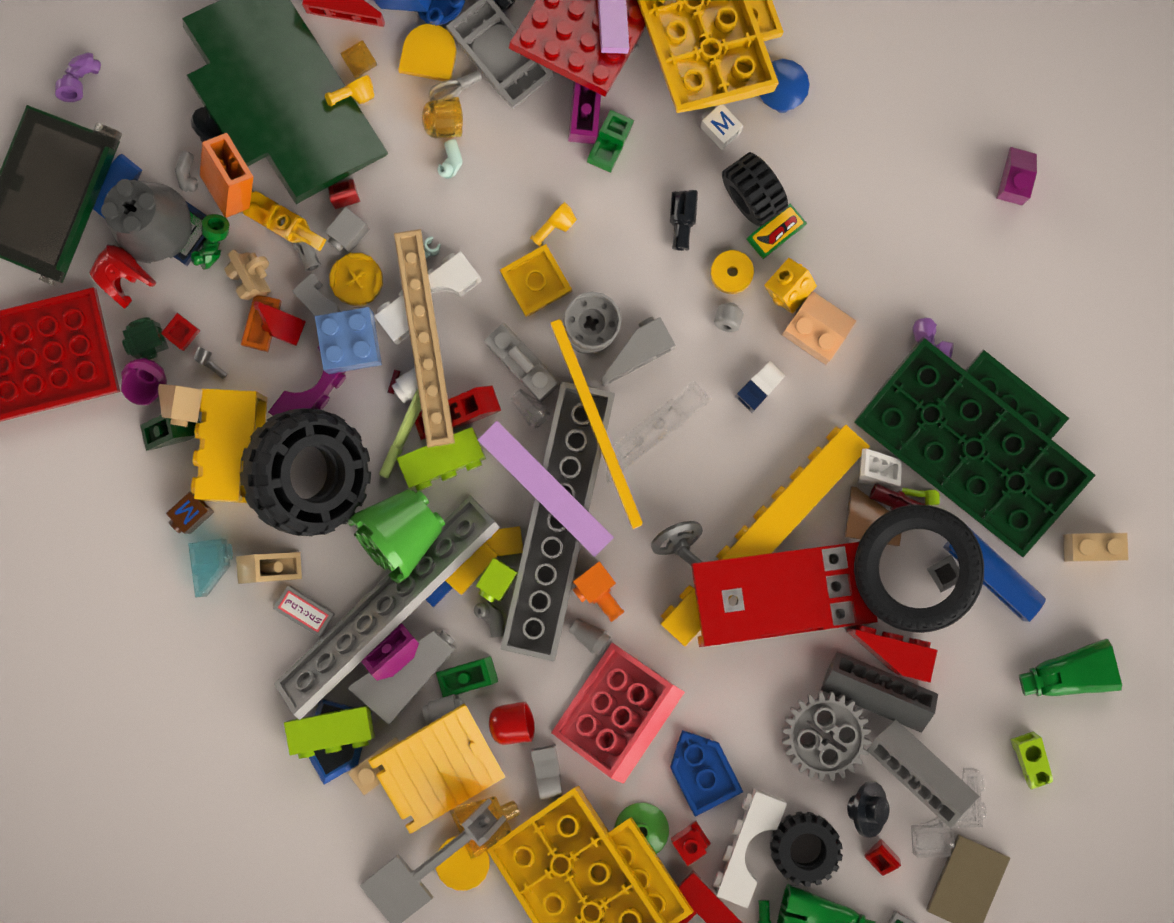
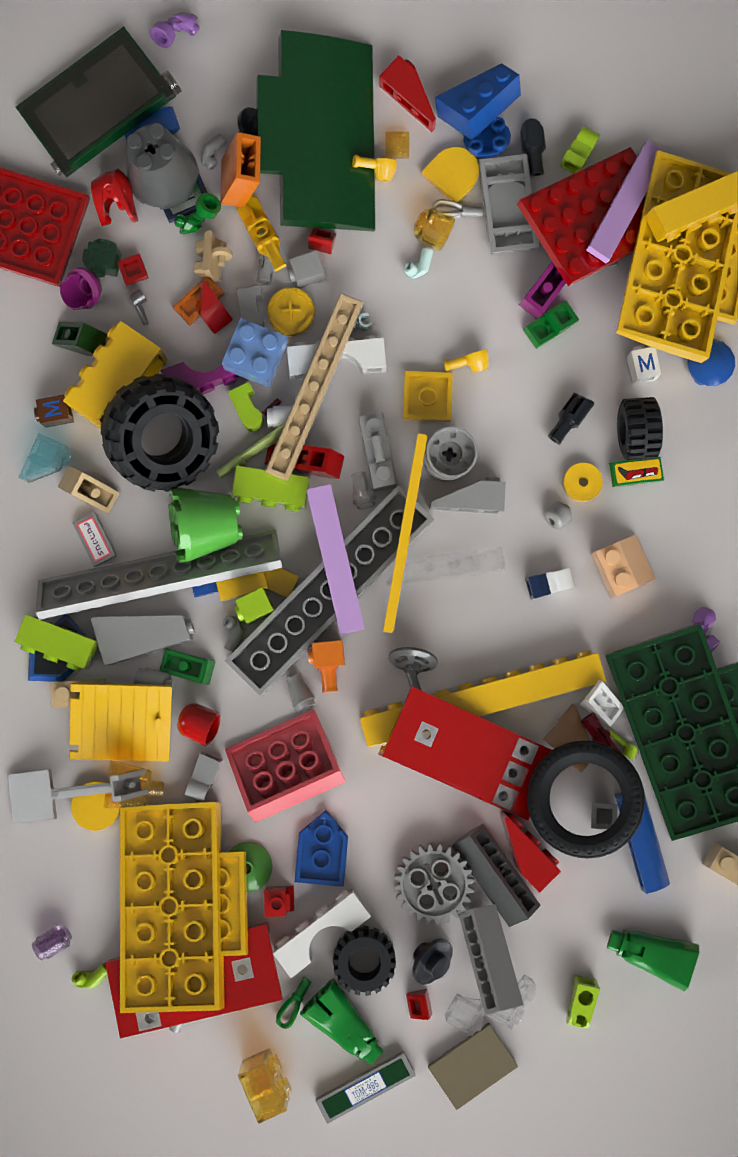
camera: 25 degrees right, 0 degrees up
(179, 403) = (96, 322): tan slope -> none
(379, 403) = (250, 416): none -> lime leg
(391, 654) = (139, 612): magenta slope -> none
(790, 285) = (621, 519): yellow head -> none

